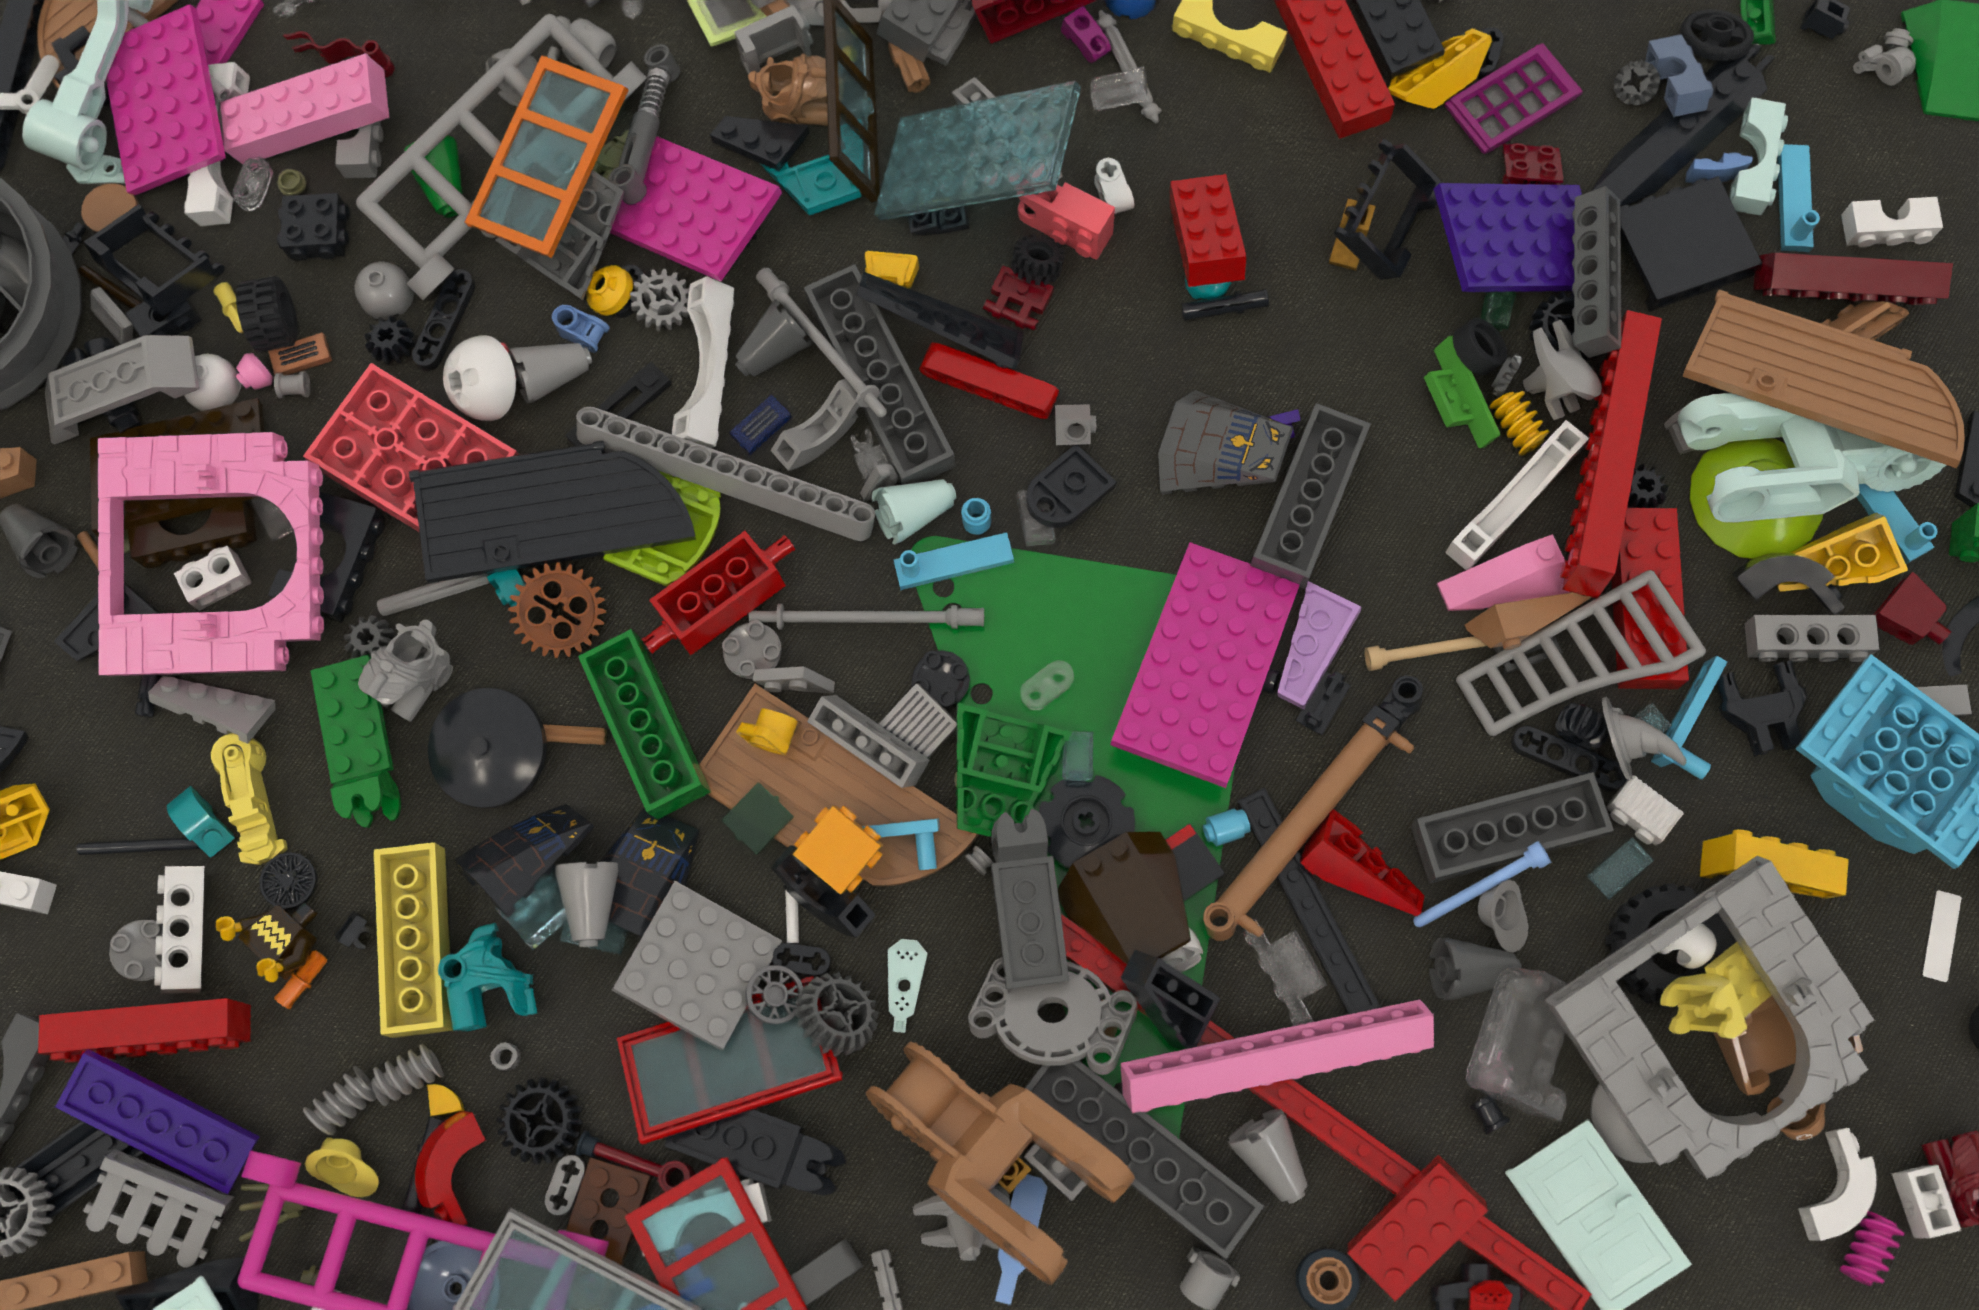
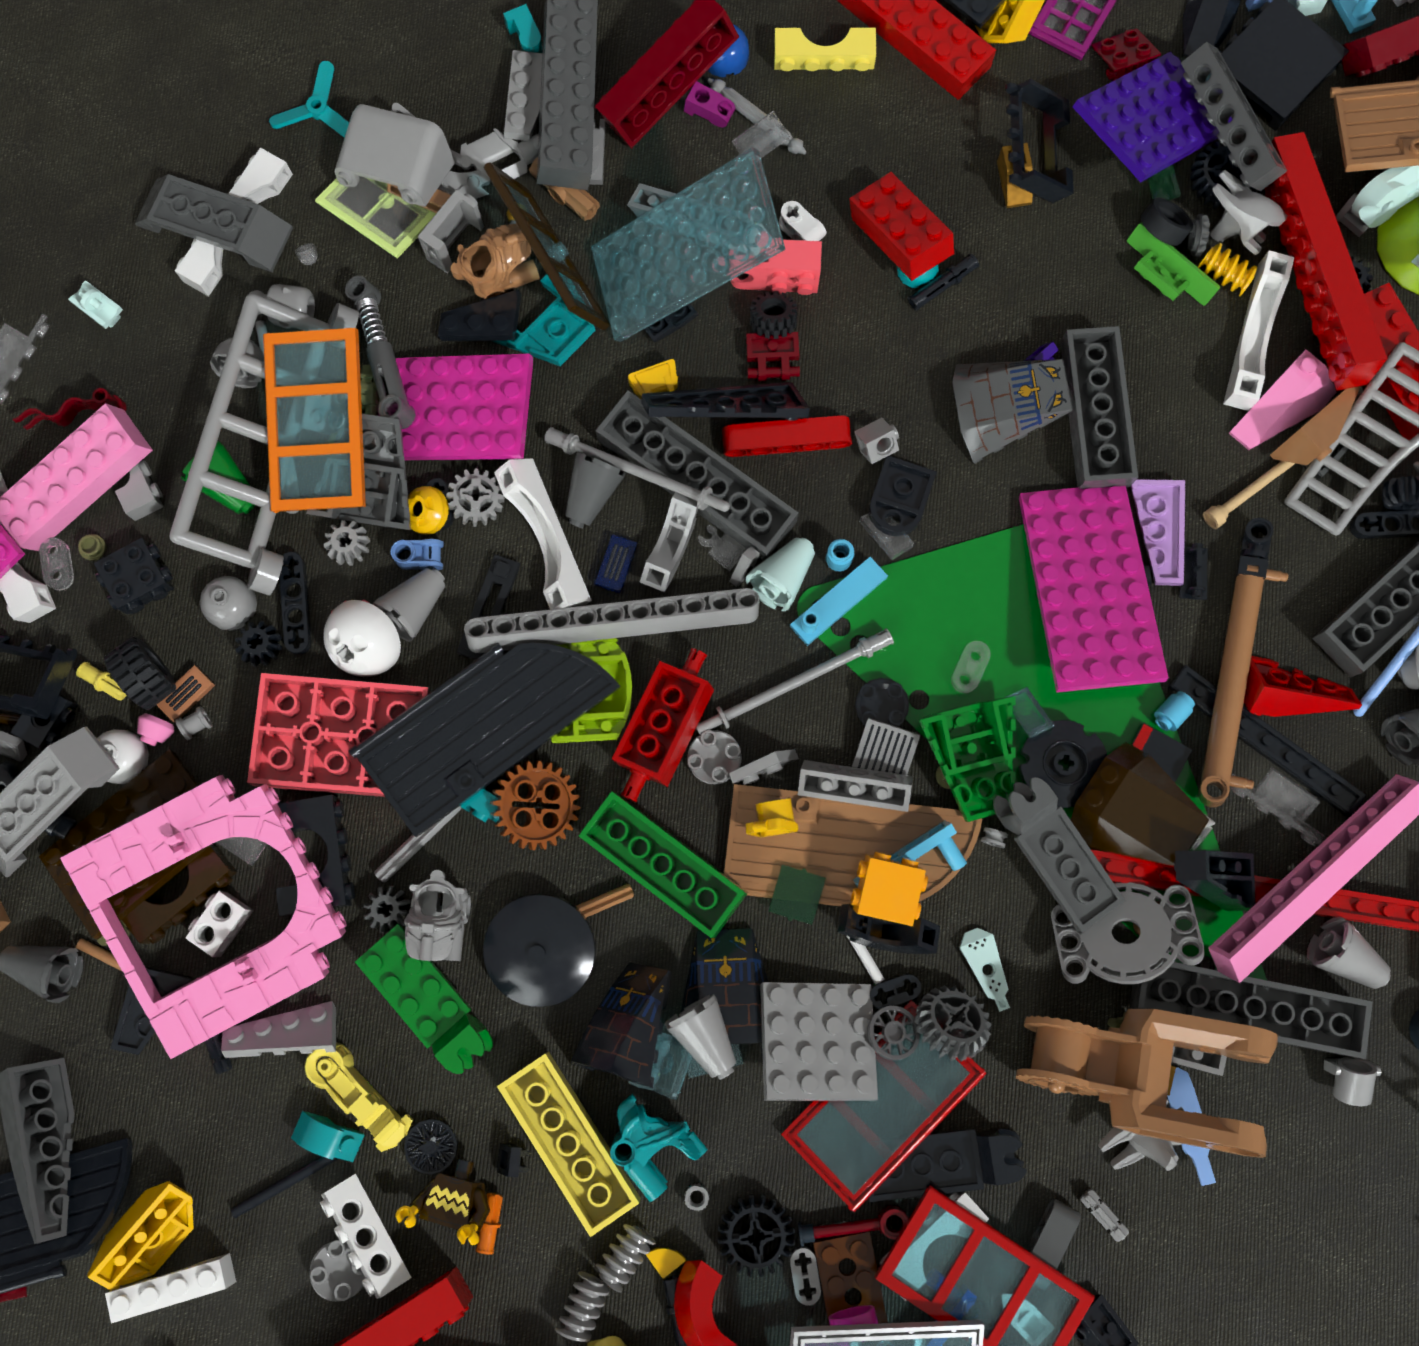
camera: 30 degrees left, 5 degrees up
(510, 284) = (342, 534): none -> light grey gear

